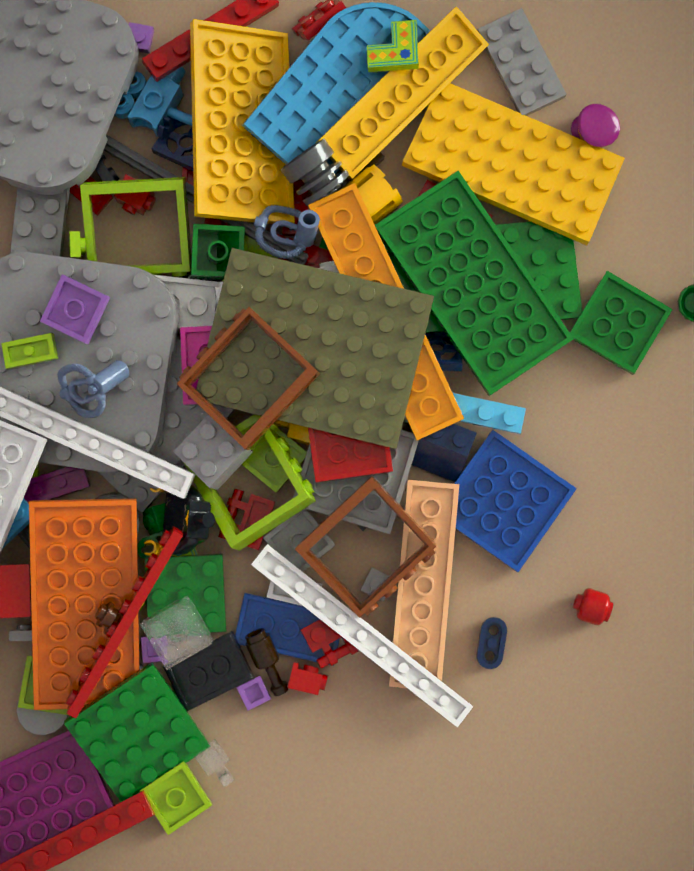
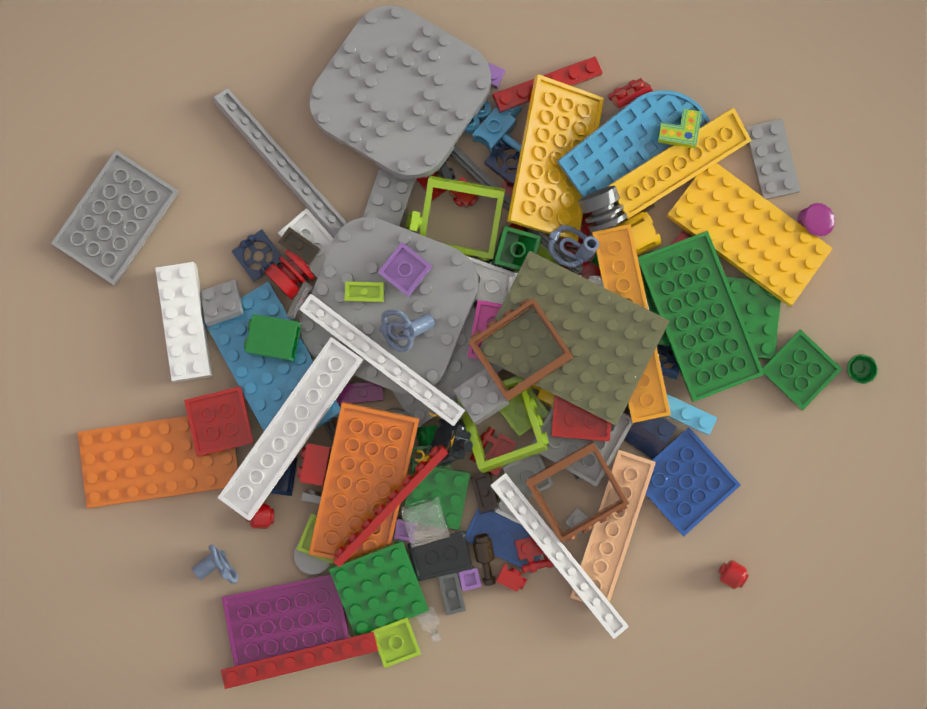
camera: 10 degrees right, 0 degrees up
(106, 615) = (378, 497): reddish brown plate -> none
(234, 717) = (451, 593): none -> dark grey plate
(249, 579) = (484, 494): none -> dark brown plate
(492, 643) = (651, 583): dark blue plate -> none

